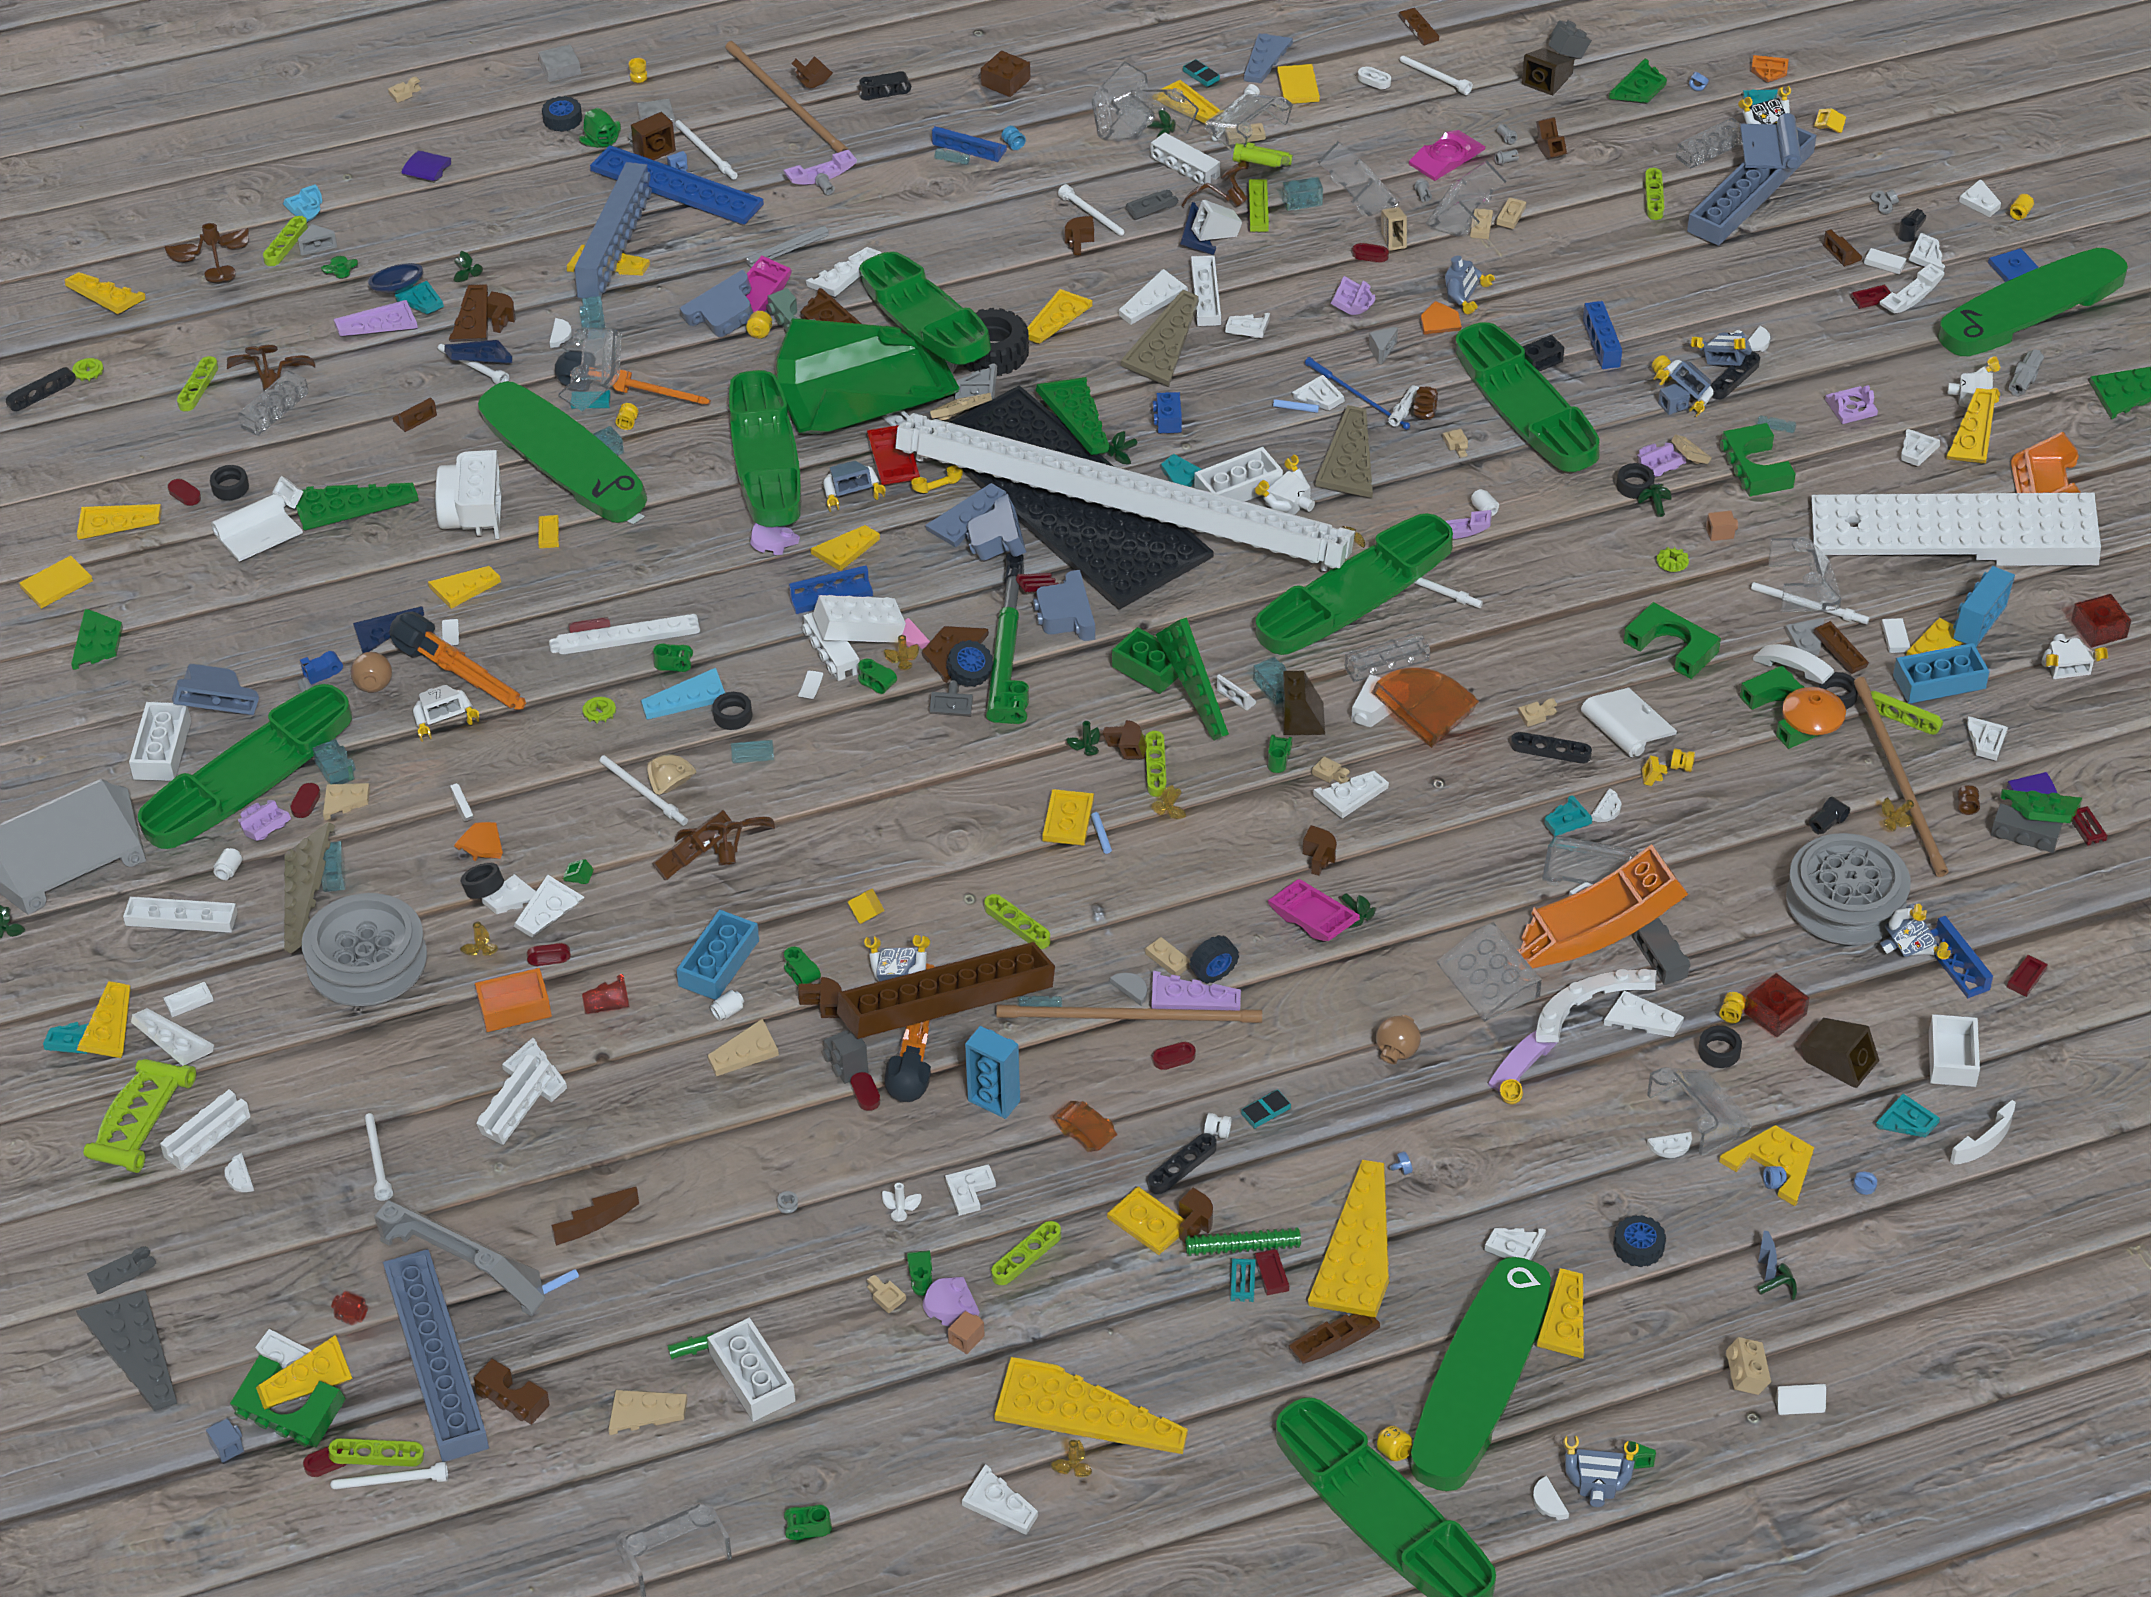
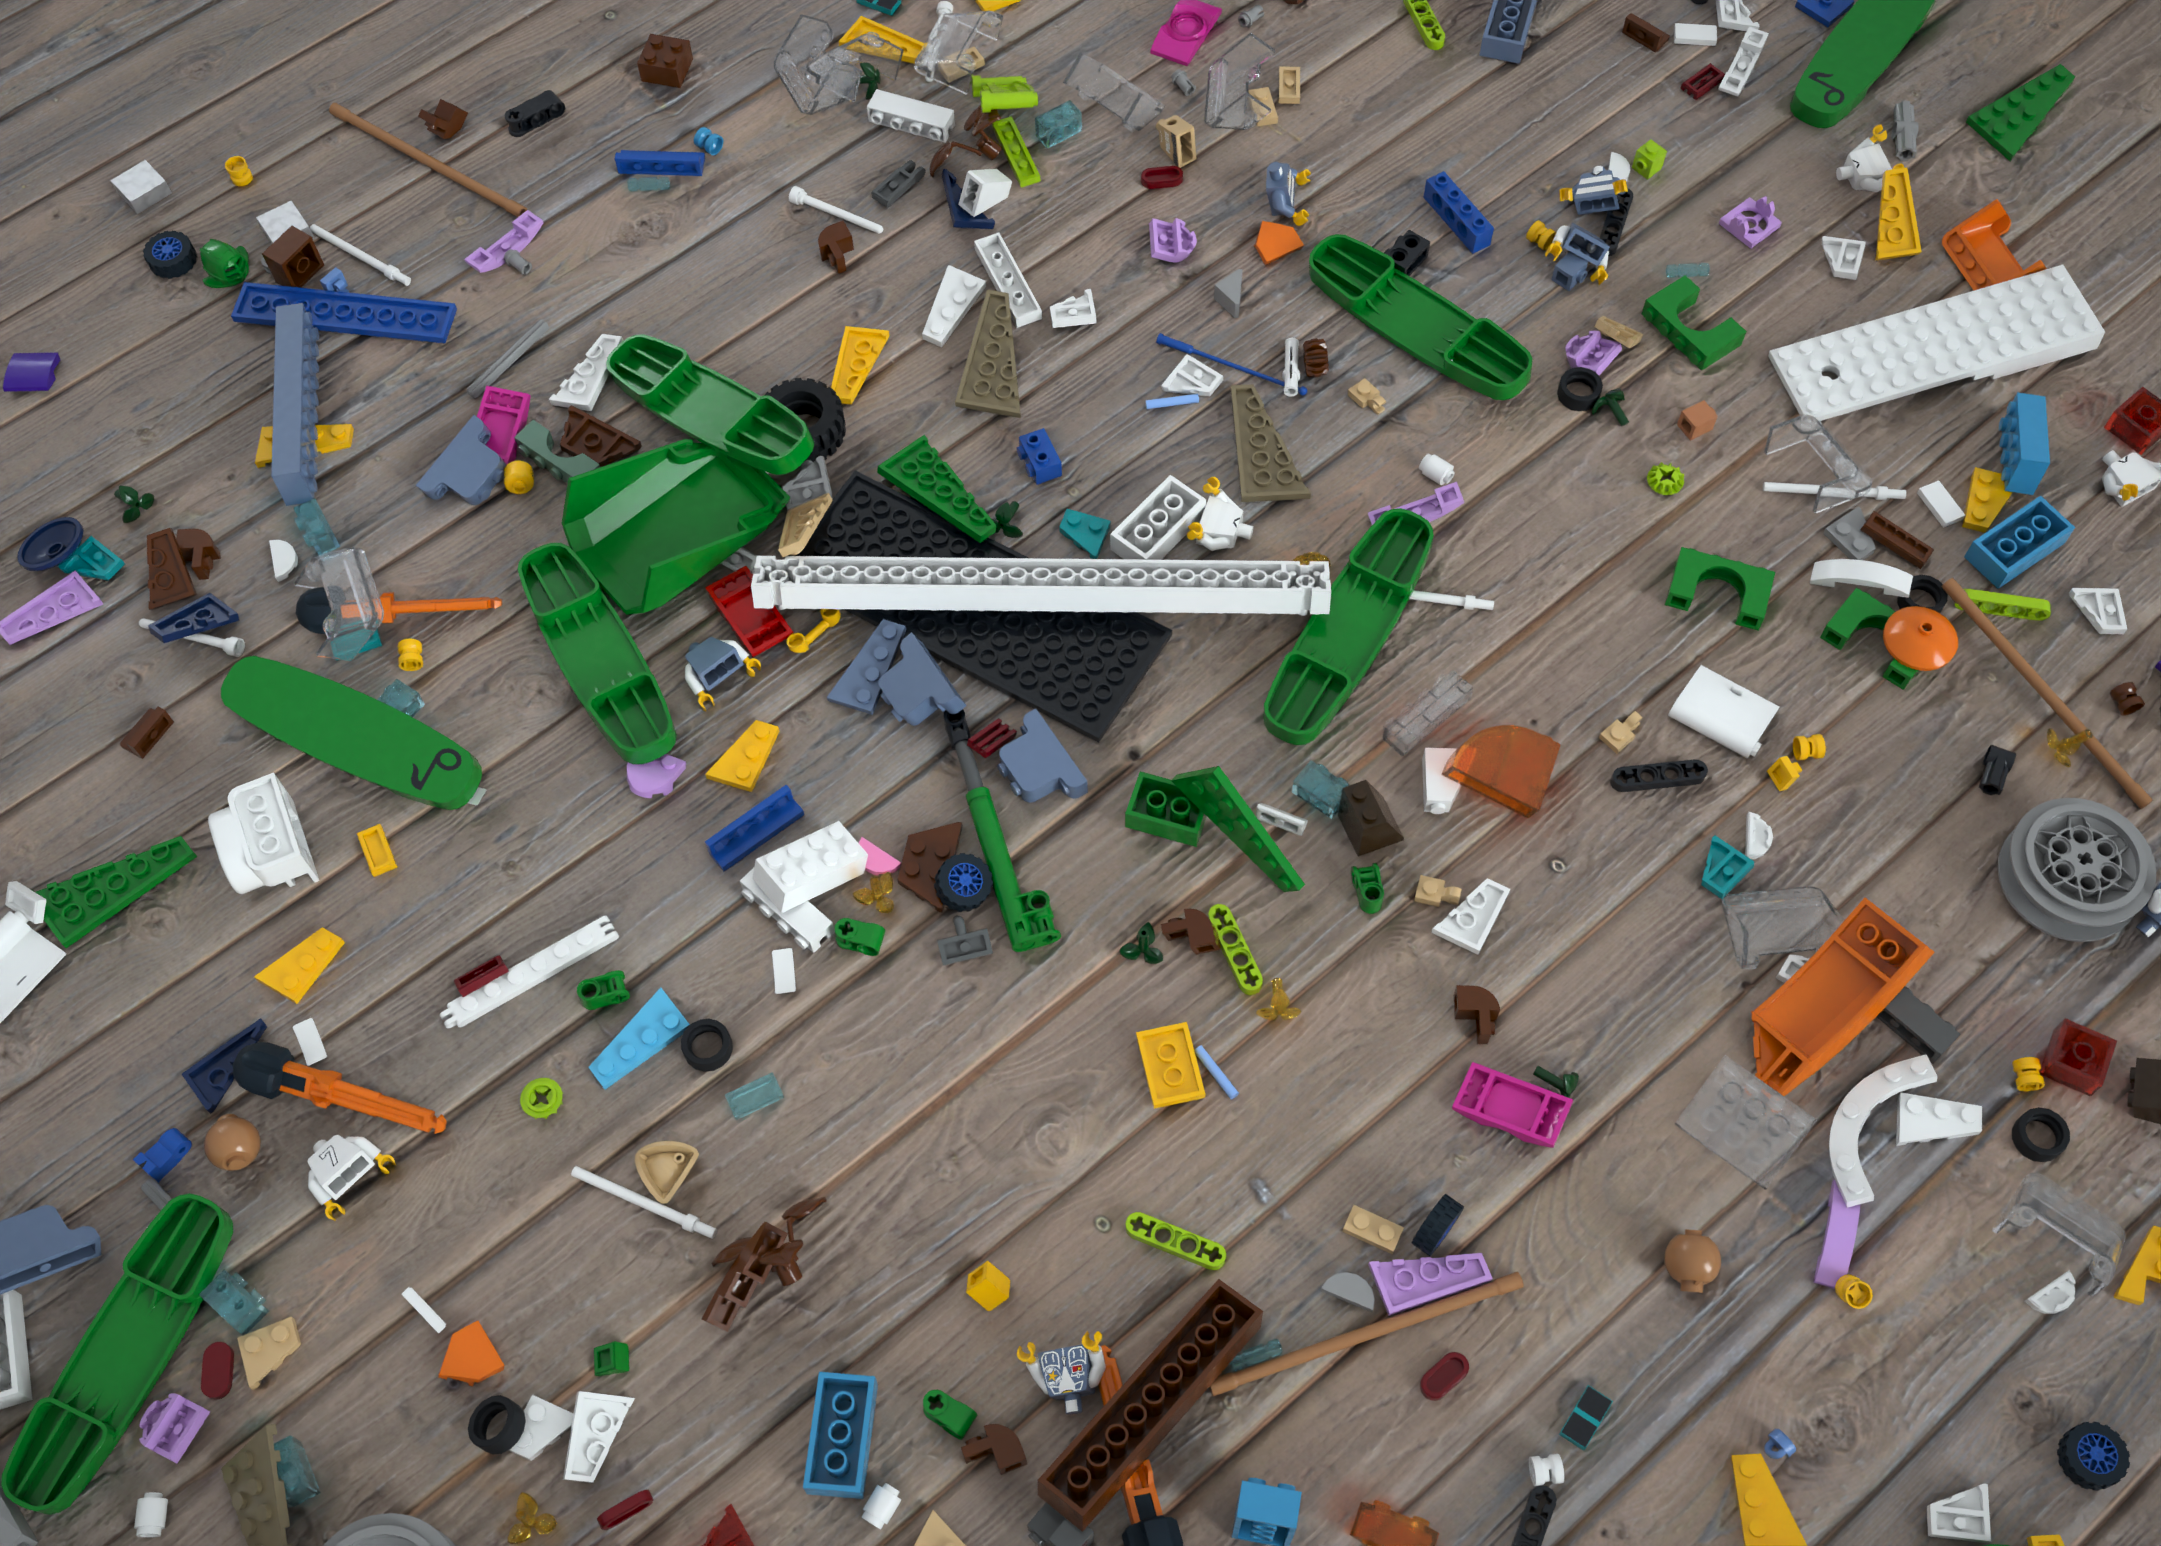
camera: 20 degrees left, 15 degrees up
(1787, 338) = (1649, 159): none -> lime brick

